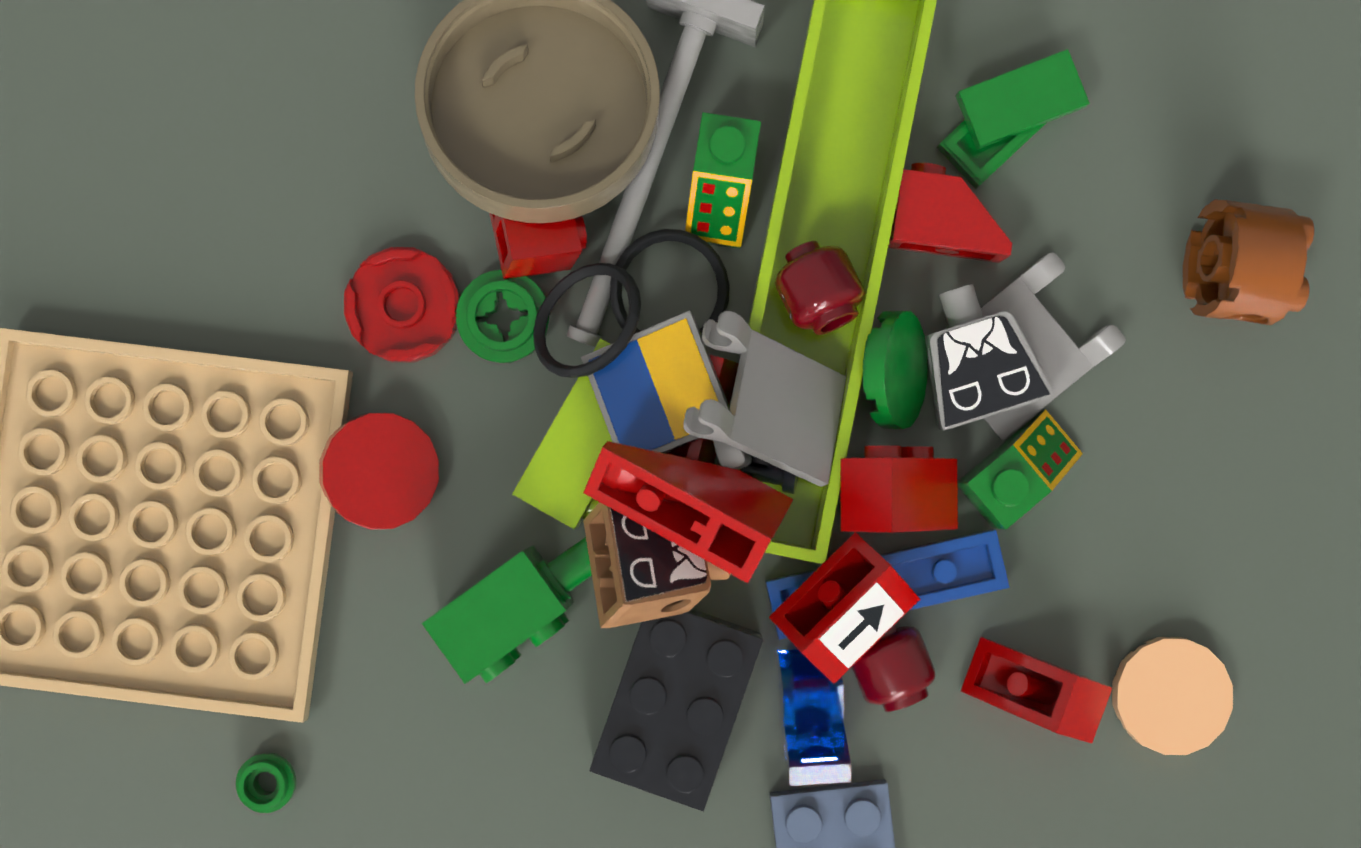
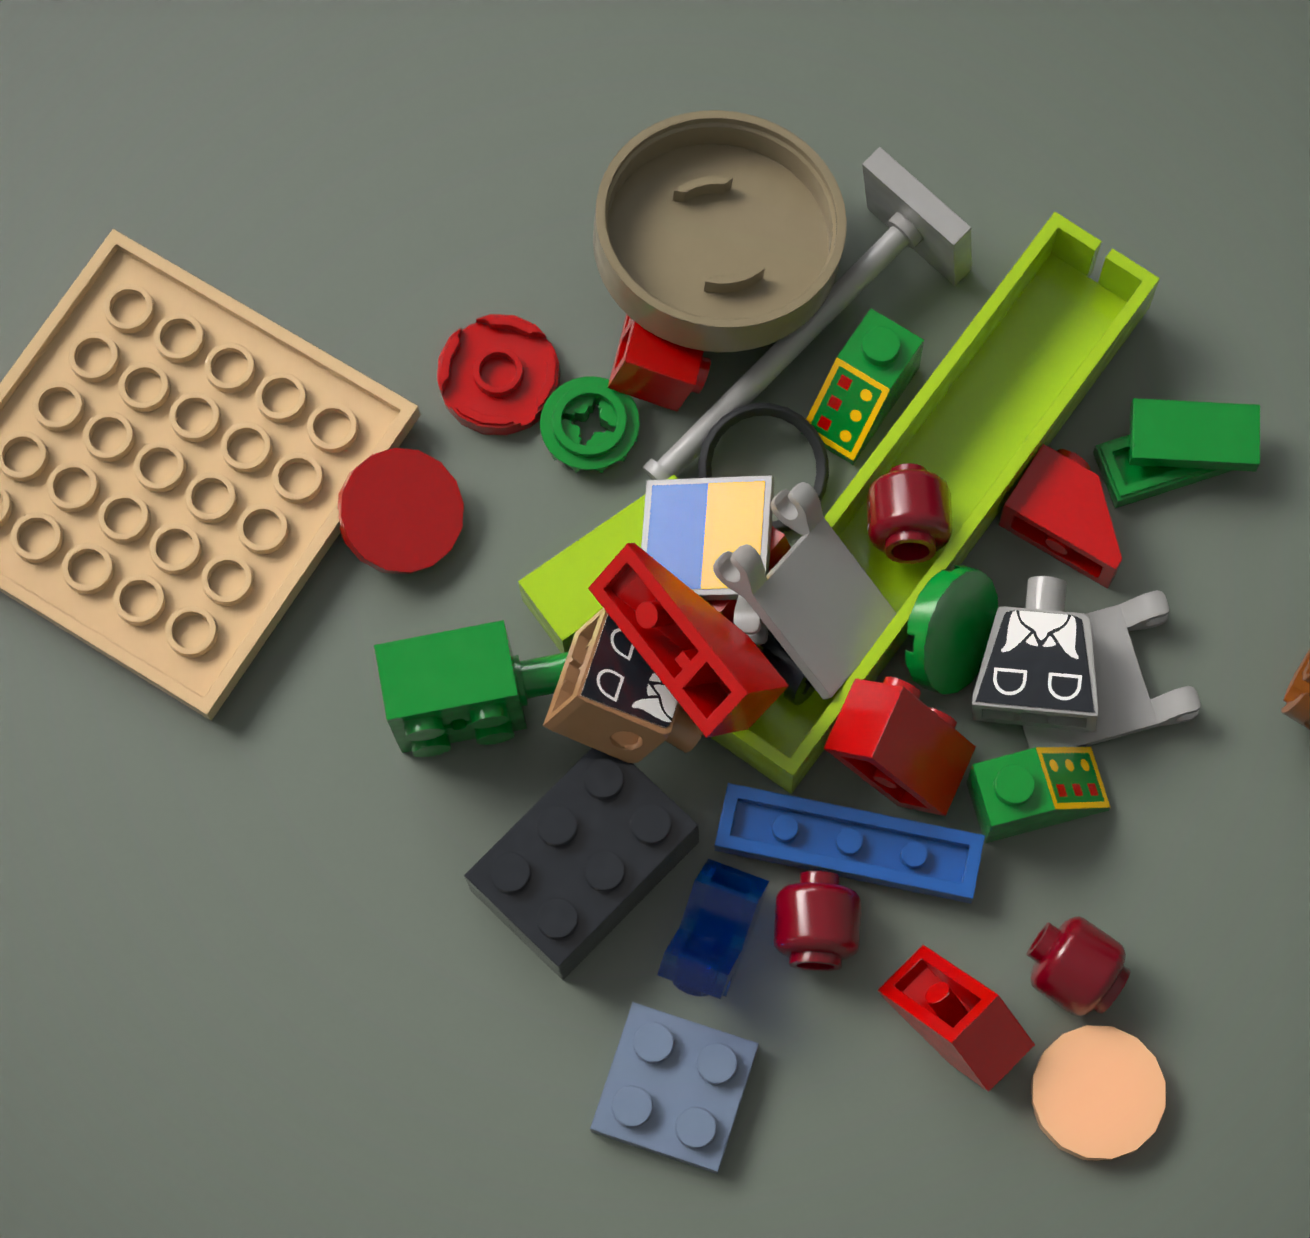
camera: 30 degrees right, 15 degrees down
(251, 792) = (126, 749): green plate -> none
(618, 346) = (680, 481): black tyre -> none
(844, 607) = (793, 827): red brick -> none
(1118, 605) = (1078, 966): none -> dark red head

